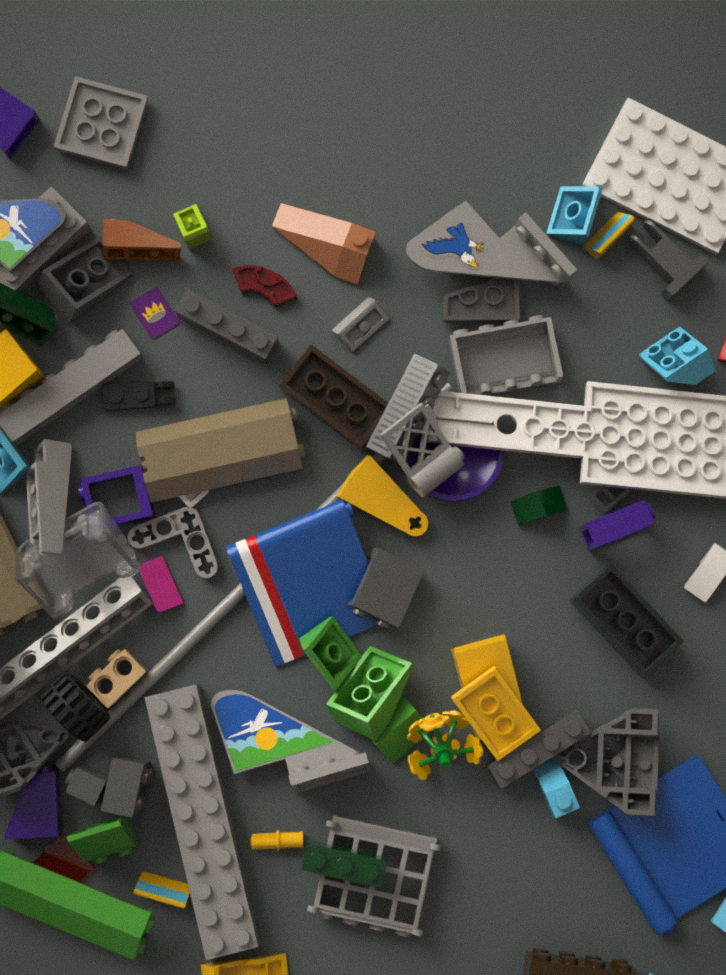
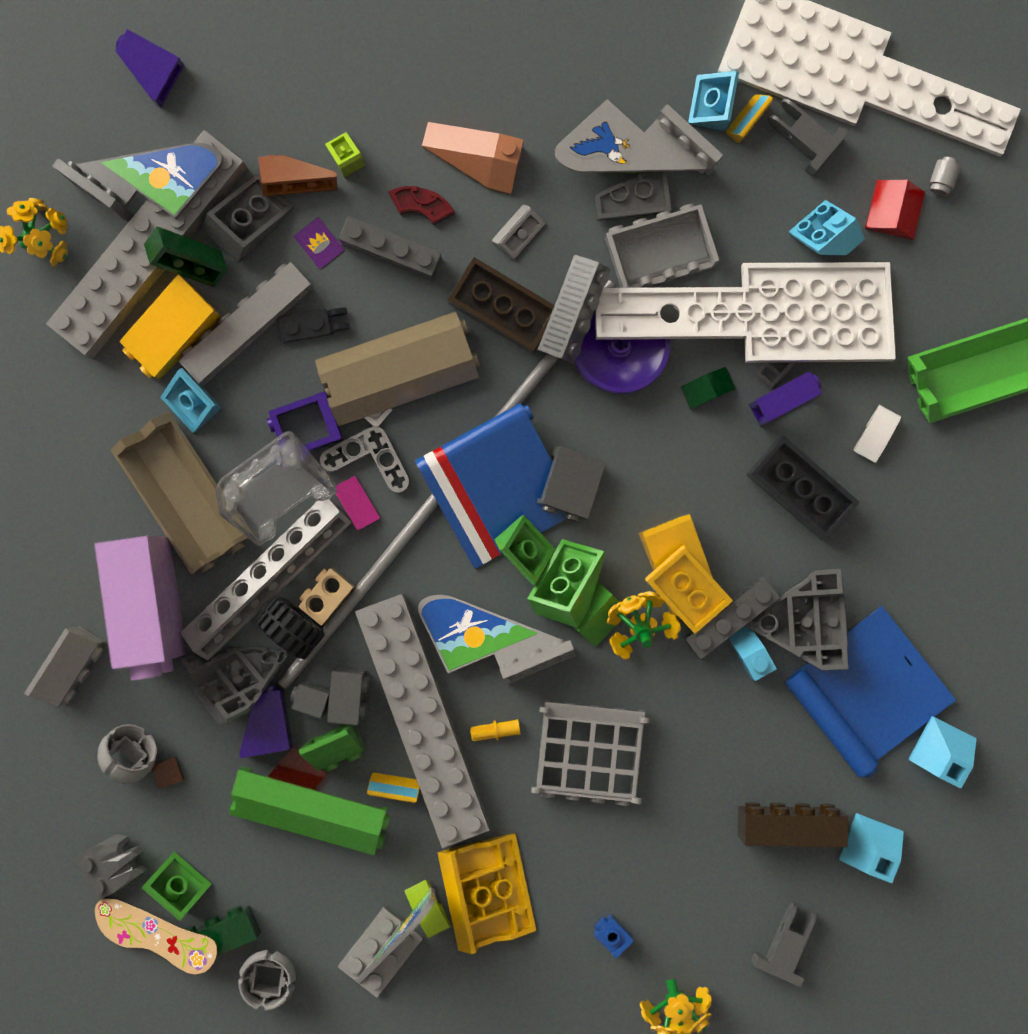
camera: 10 degrees left, 5 degrees up
(47, 495) = (239, 430): light grey wedge -> none
(101, 122) = (244, 61): light grey plate -> none
(344, 863) = (561, 745): dark green brick -> none
(380, 496) = (553, 394): yellow piece -> none
(437, 464) = (606, 361): light grey piece -> none

